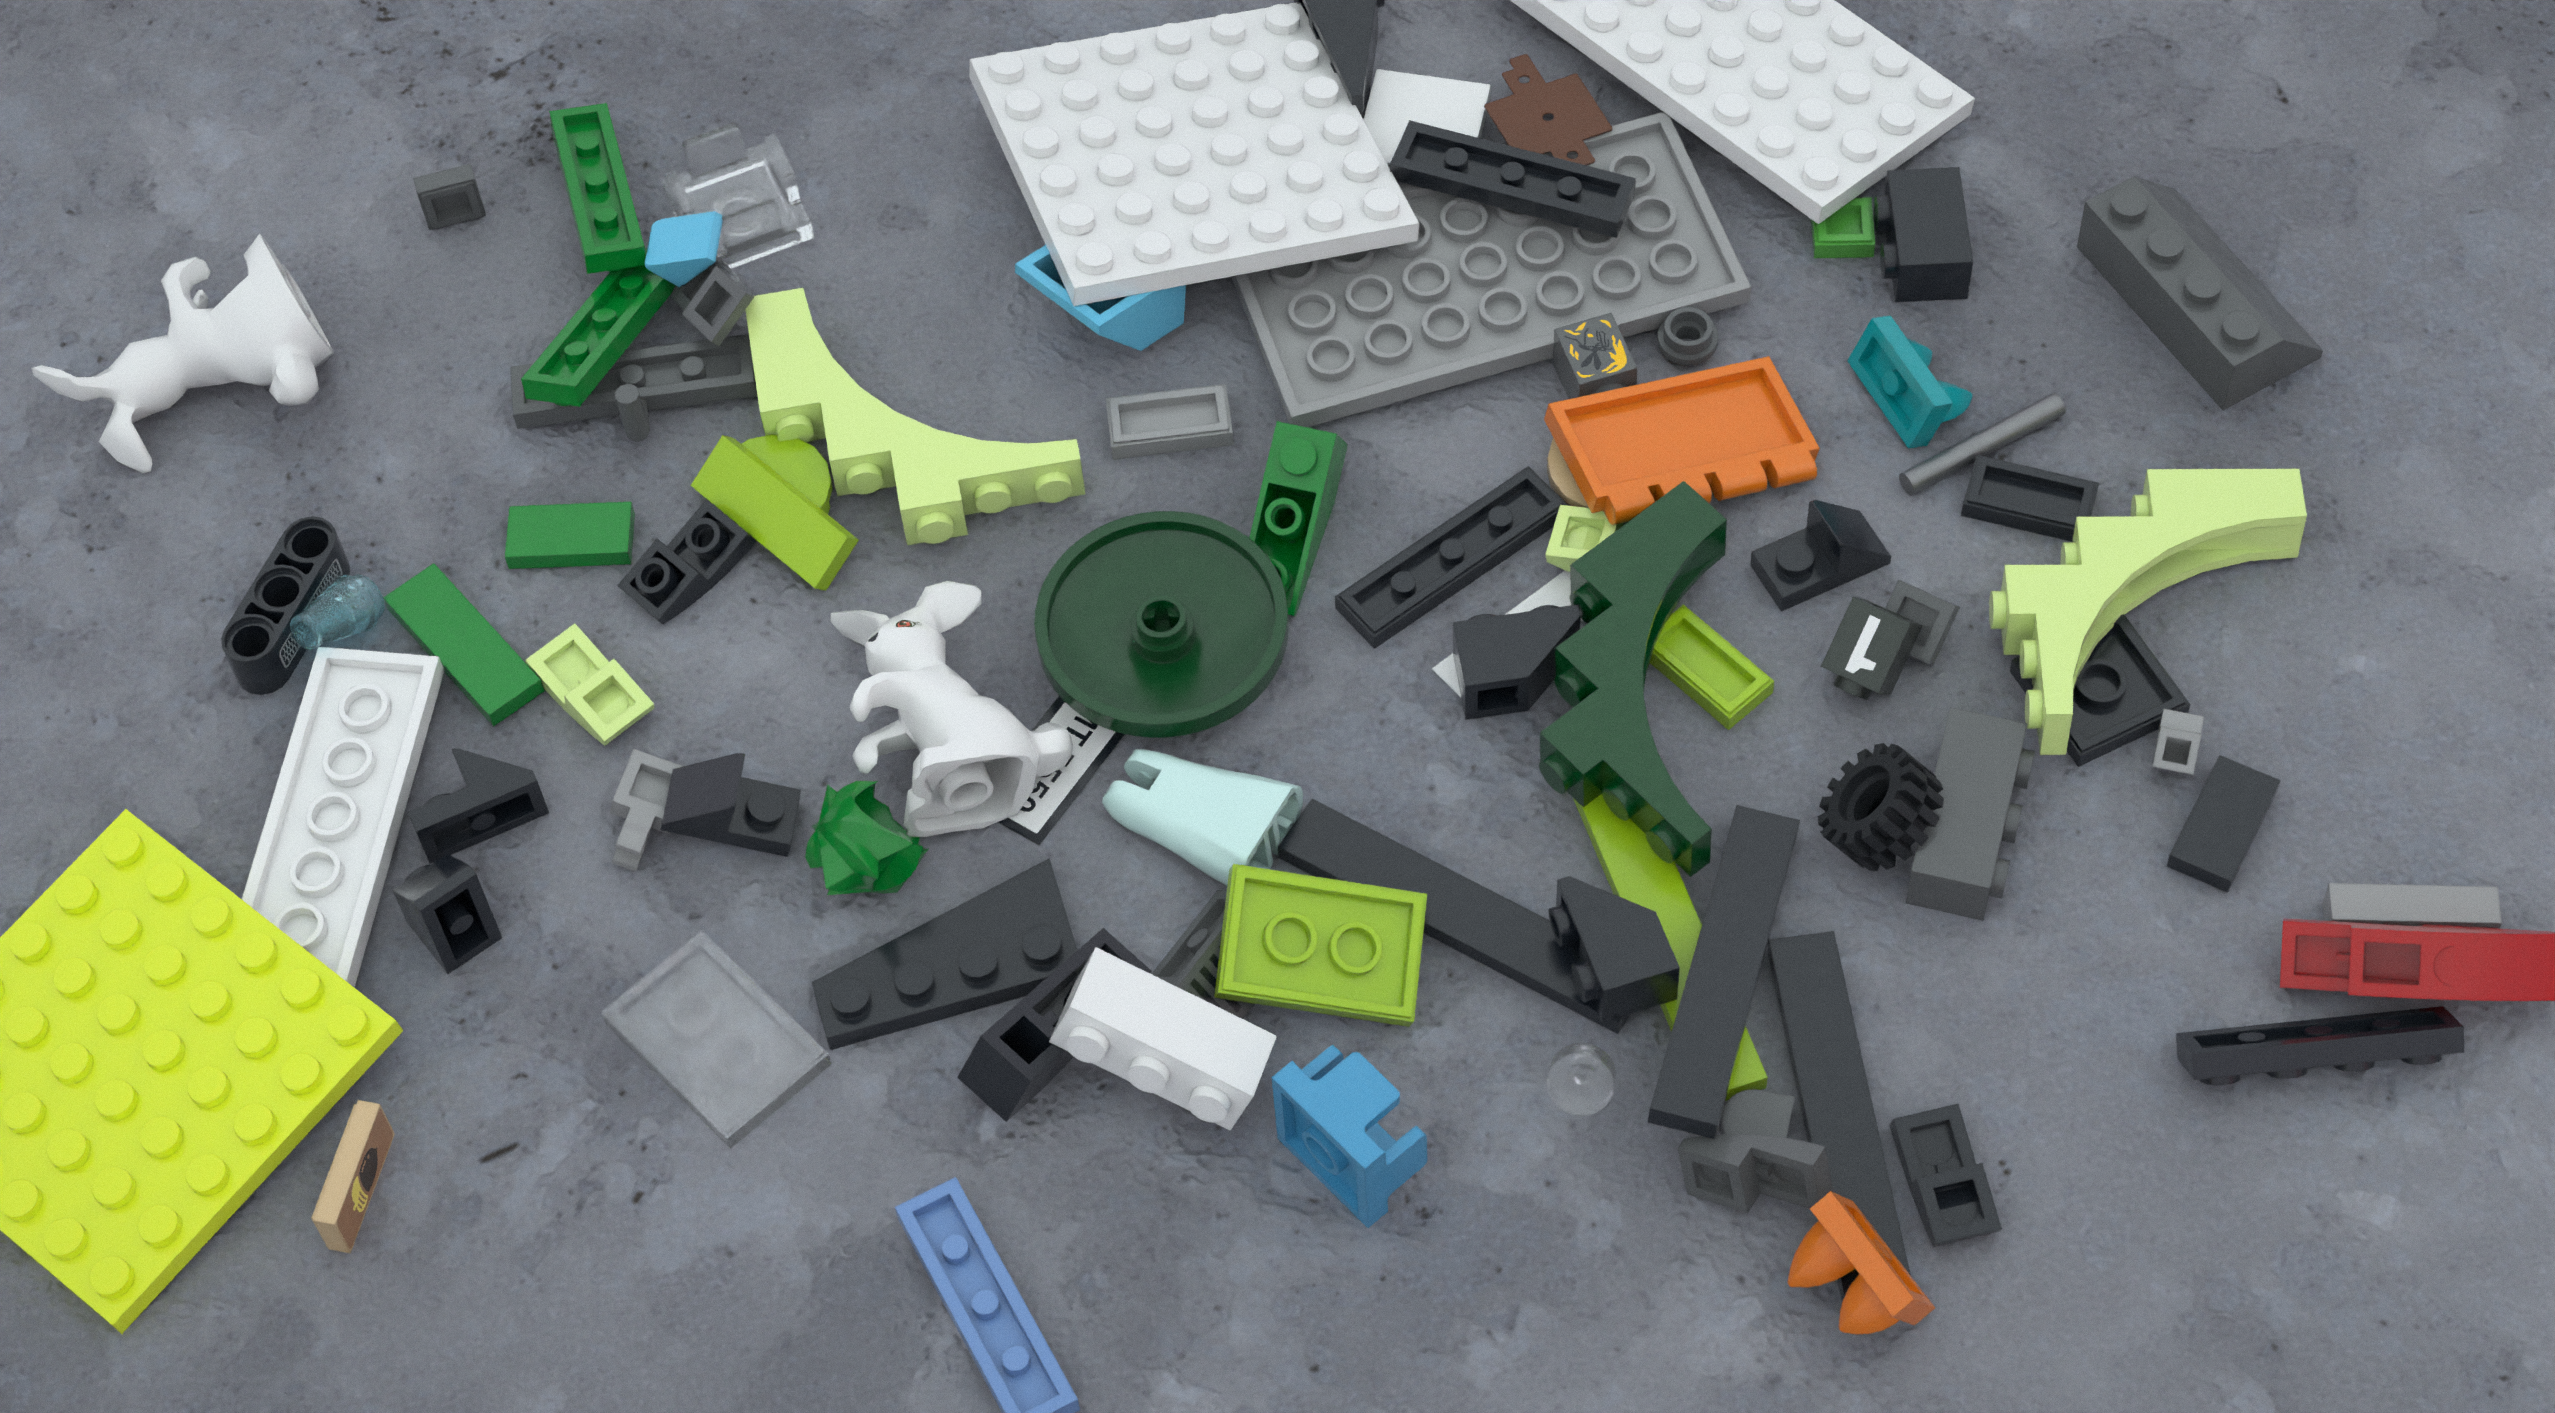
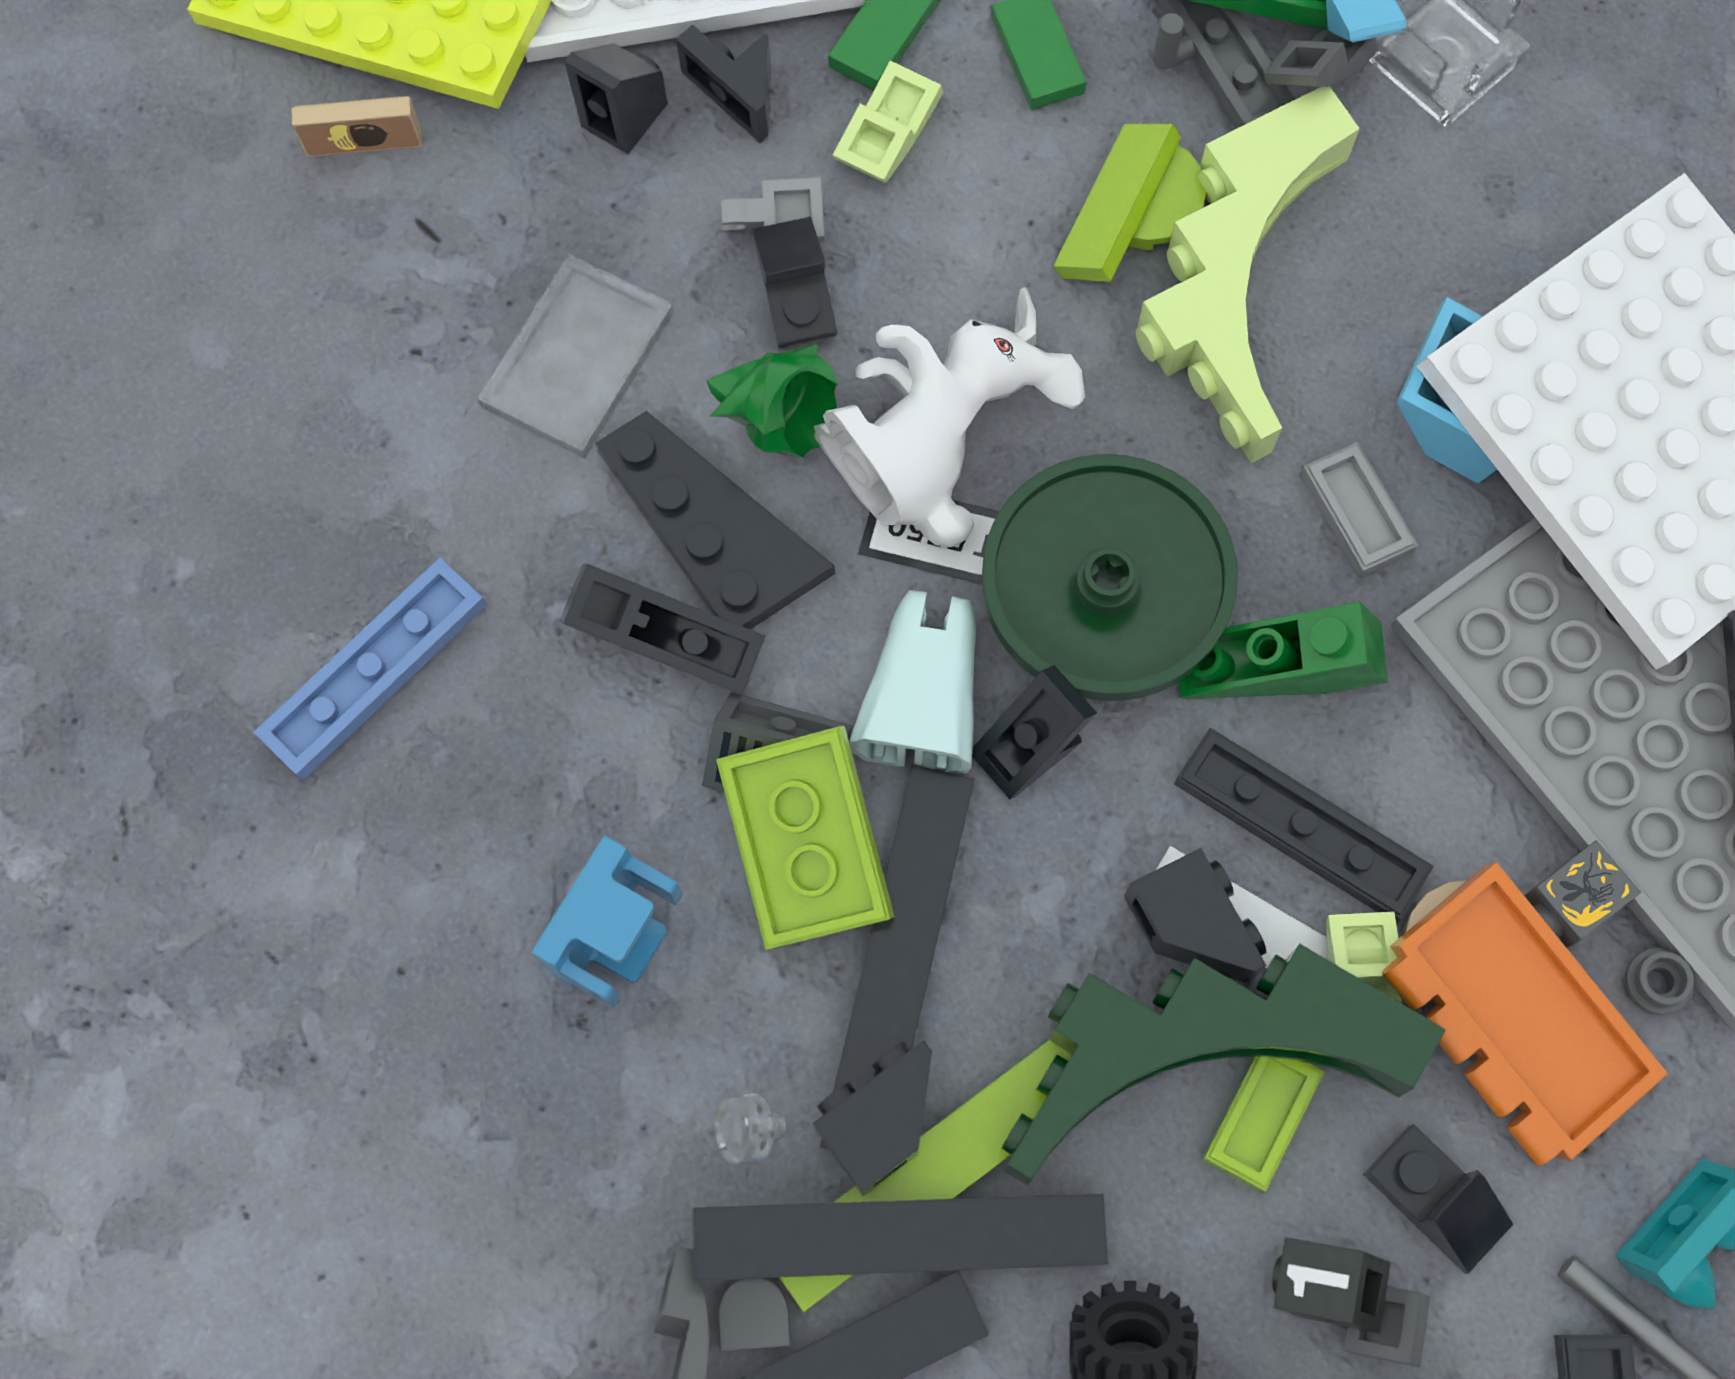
camera: 70 degrees right, 15 degrees up
(695, 560) = (1036, 153): black slope -> none
(1163, 1039) = (649, 727): white brick -> none
(1288, 727) = (1033, 732): none -> black slope

